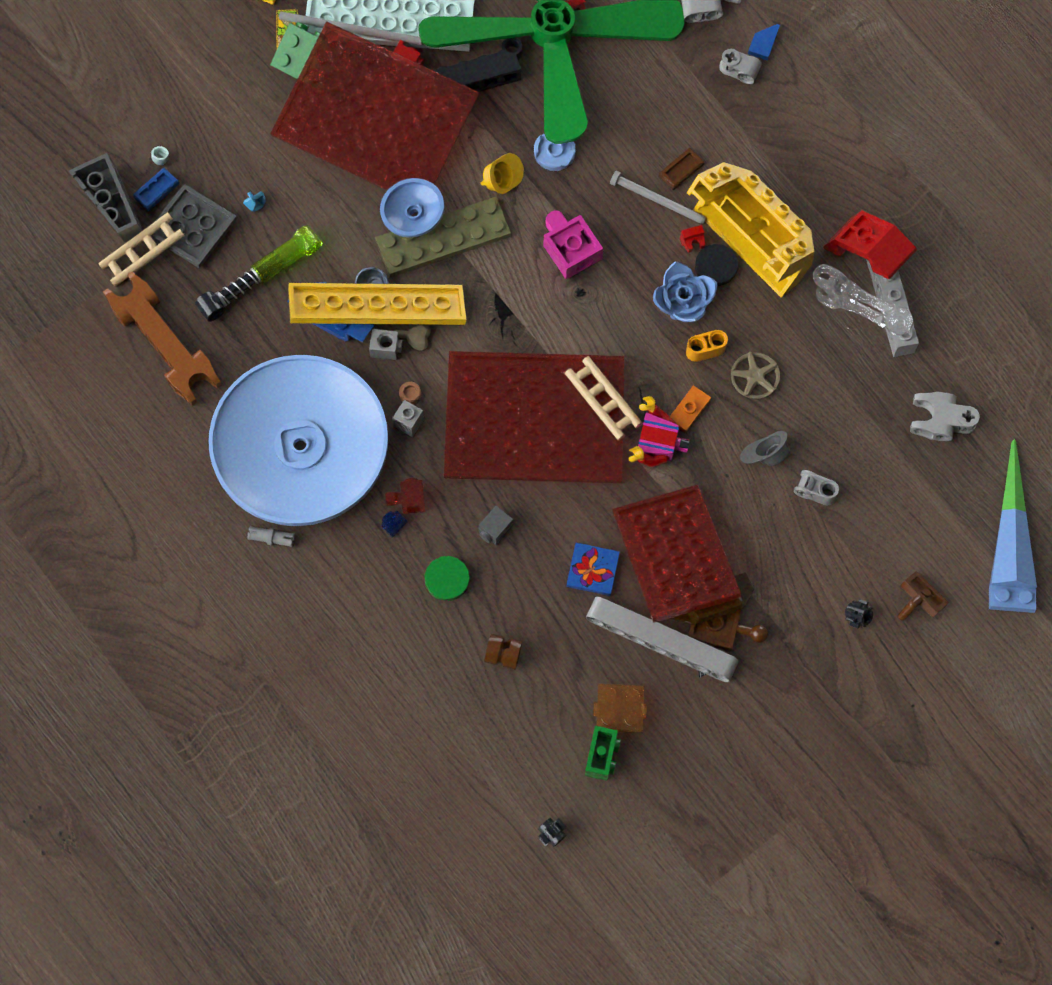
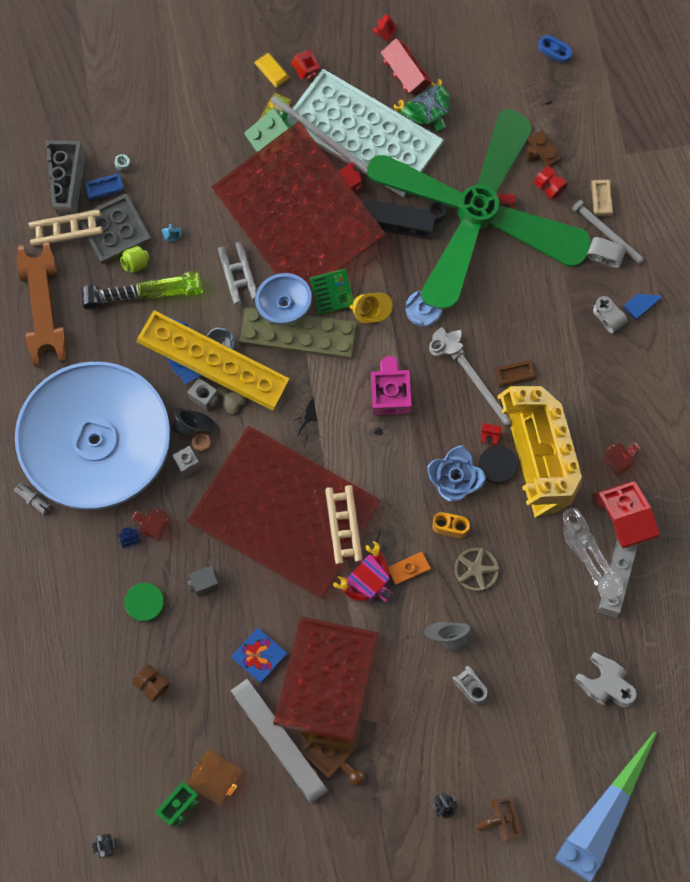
camera: 30 degrees right, 0 degrees up
(233, 246) = (134, 259): none -> lime head
(348, 196) = (228, 269): none -> light grey piece
(389, 378) = (191, 422): none -> black piece
(455, 177) = (331, 291): none -> green tile
(599, 171) = (445, 342): none -> light grey plate
(830, 197) = (620, 458): none -> clear red brick

